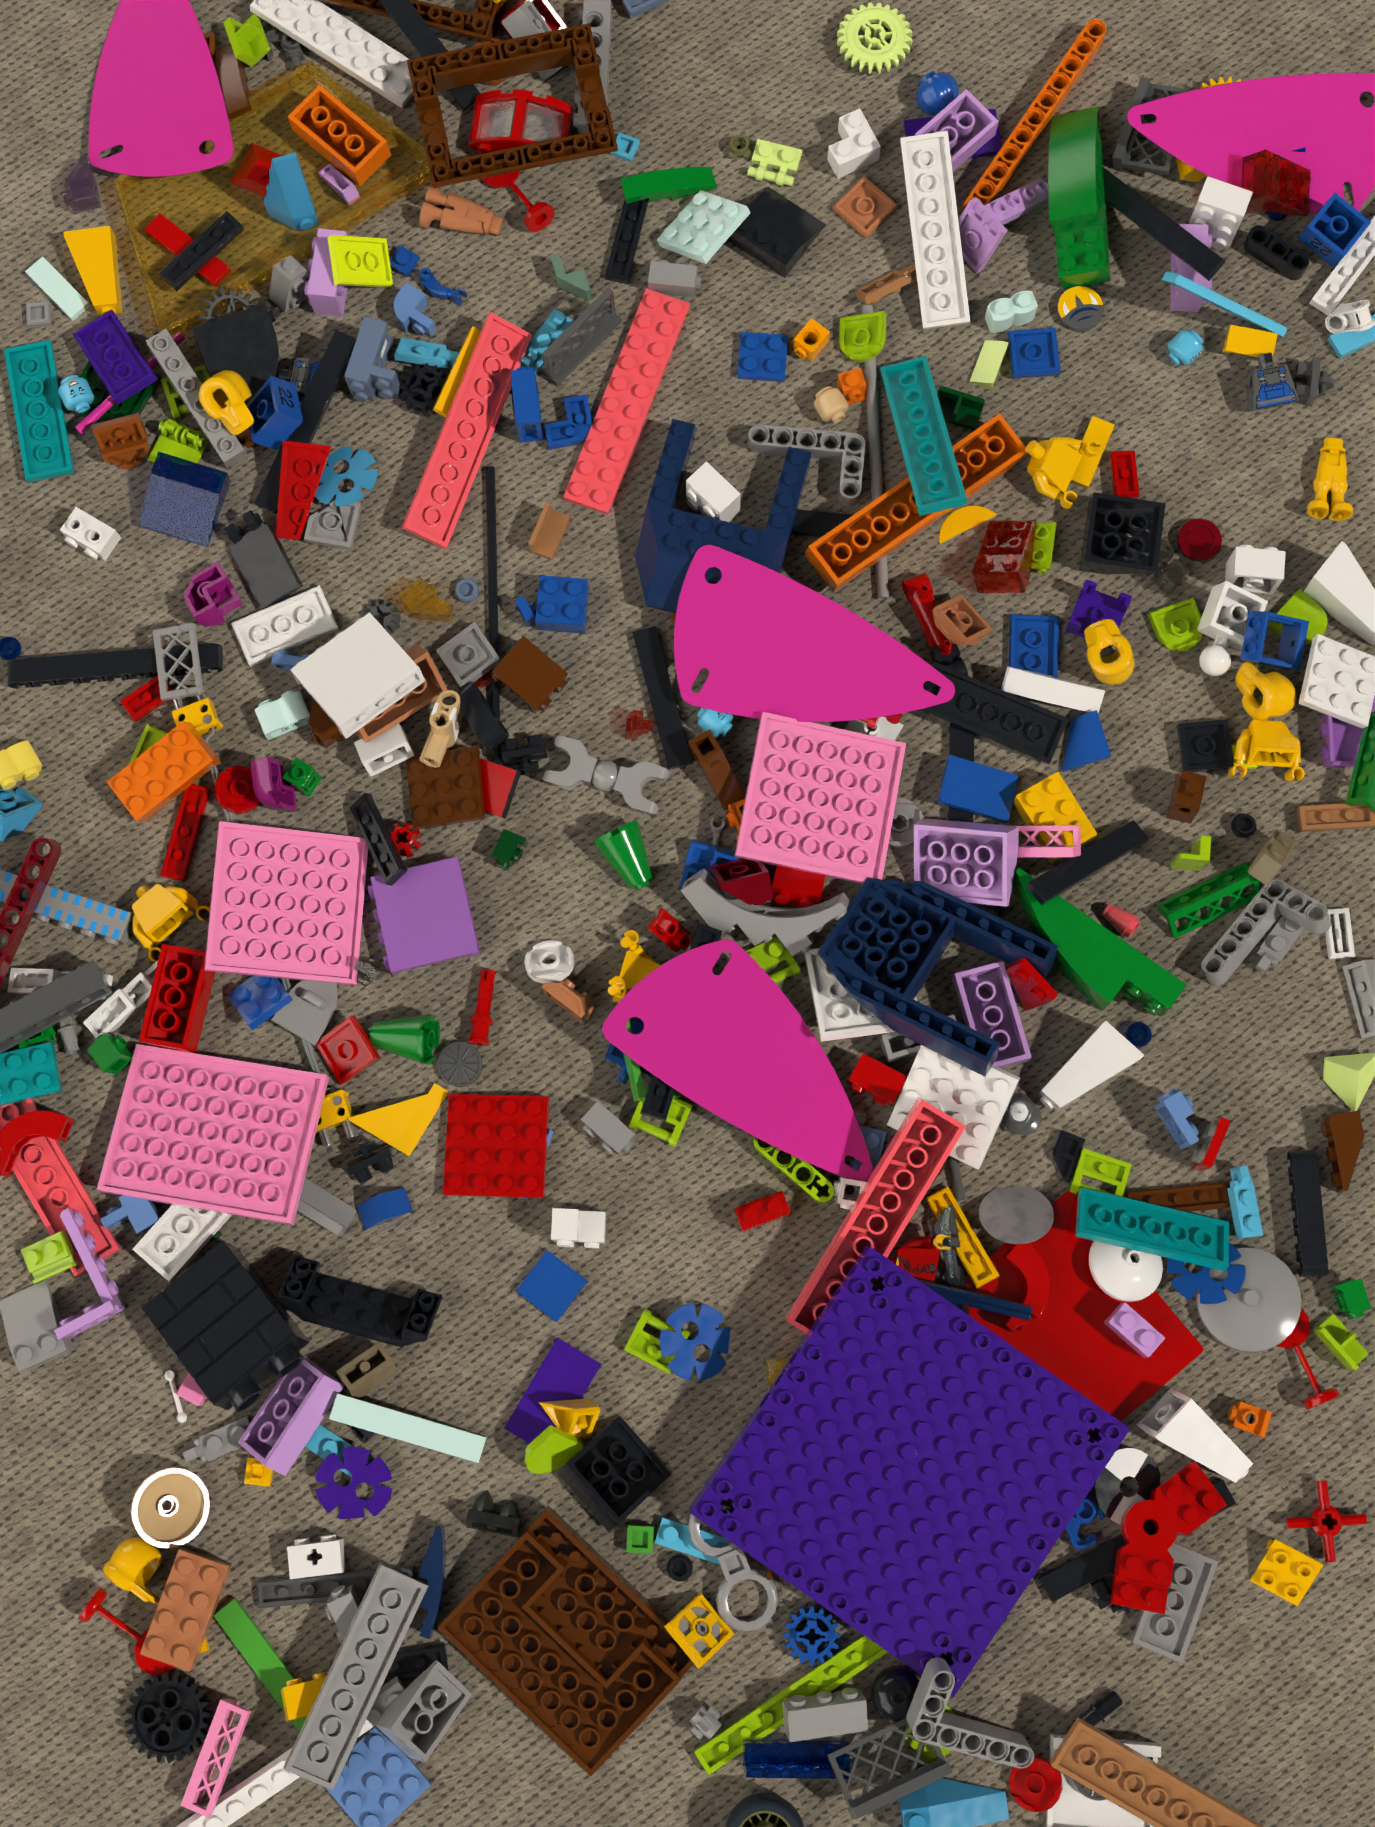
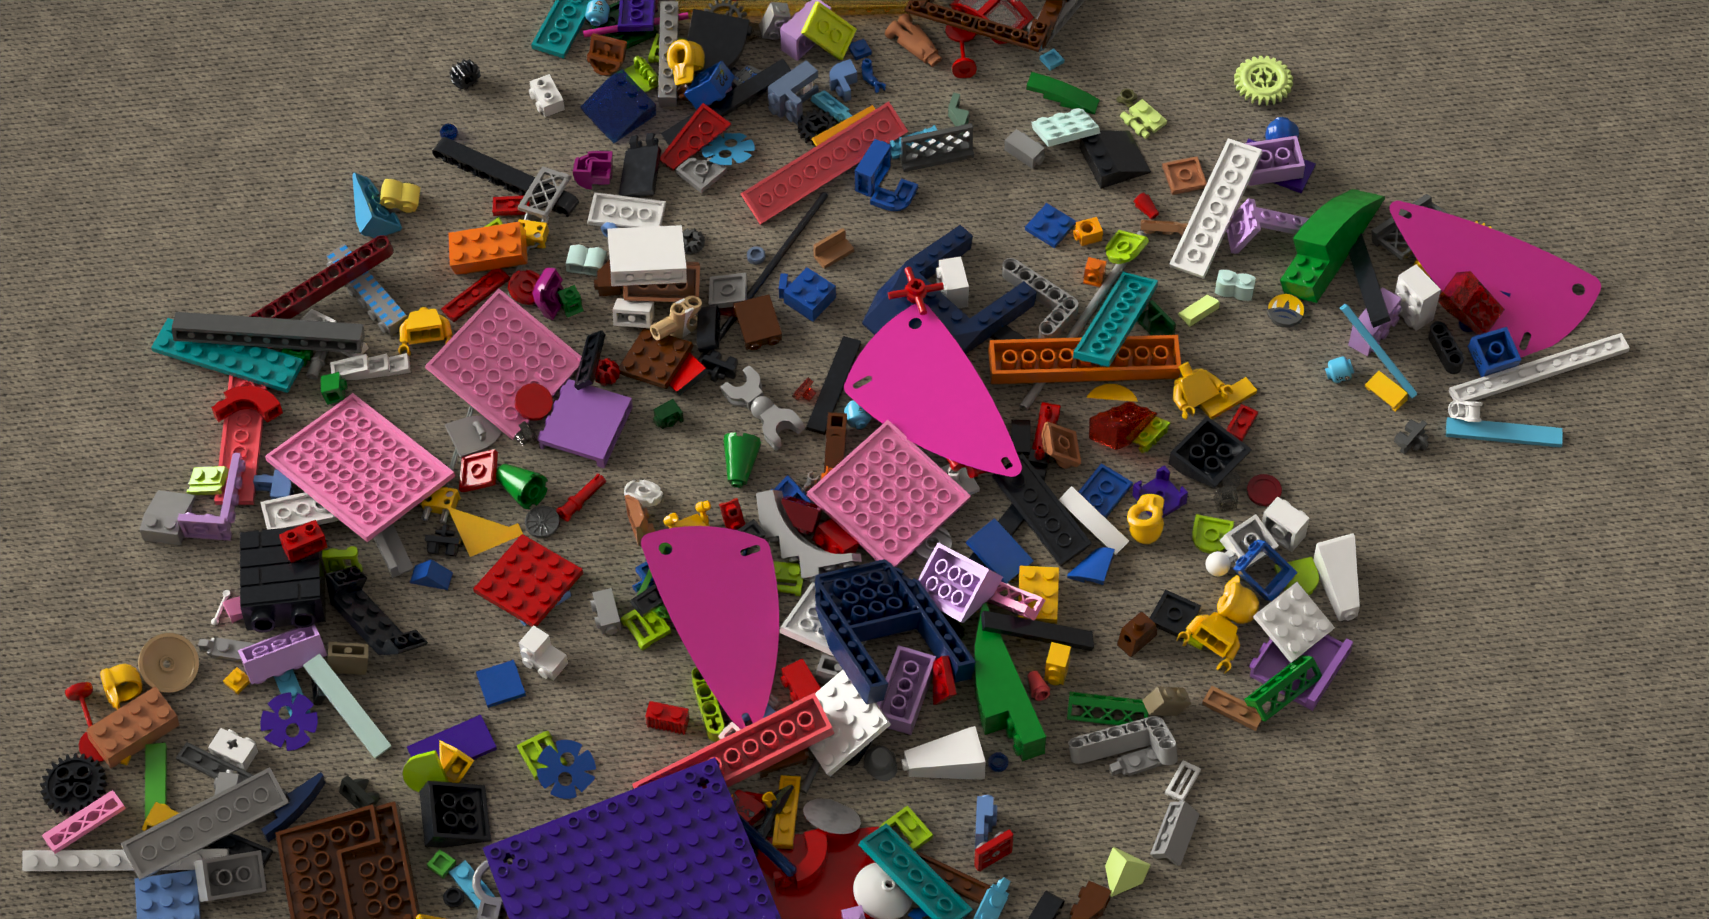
camera: 30 degrees right, 20 degrees down
(177, 1000) = (397, 381): red slope -> none
(225, 1278) = (303, 541): none -> red brick
(259, 999) = (447, 409): blue plate -> none
(270, 1265) = (335, 559): none -> lime plate
(350, 929) = (533, 401): none -> red tile
(423, 603) = (722, 246): clear yellow slope -> none
(626, 241) = (1012, 112): black tile -> none
(626, 401) = (941, 203): coral plate -> none
(692, 543) = (915, 290): none -> red bar
(831, 405) = (1072, 274): tan head -> none
(851, 270) = (1145, 204): none -> red cone
(857, 145) = (1201, 137): white brick -> none
(904, 631) = (1021, 436): none -> black slope
(1033, 353) = (1233, 319): blue plate -> none
(1039, 114) = (1345, 180): orange beam -> none
(1066, 1153) = (895, 803): black tile -> none
(1131, 885) = (1057, 663): none -> yellow brick
(1197, 859) = (1113, 674): lime panel -> none
(1243, 825) = (1165, 677): black plate -> none
(1269, 385) = (1380, 422): torso -> none
(1331, 476) = (1384, 501): yellow piece -> none

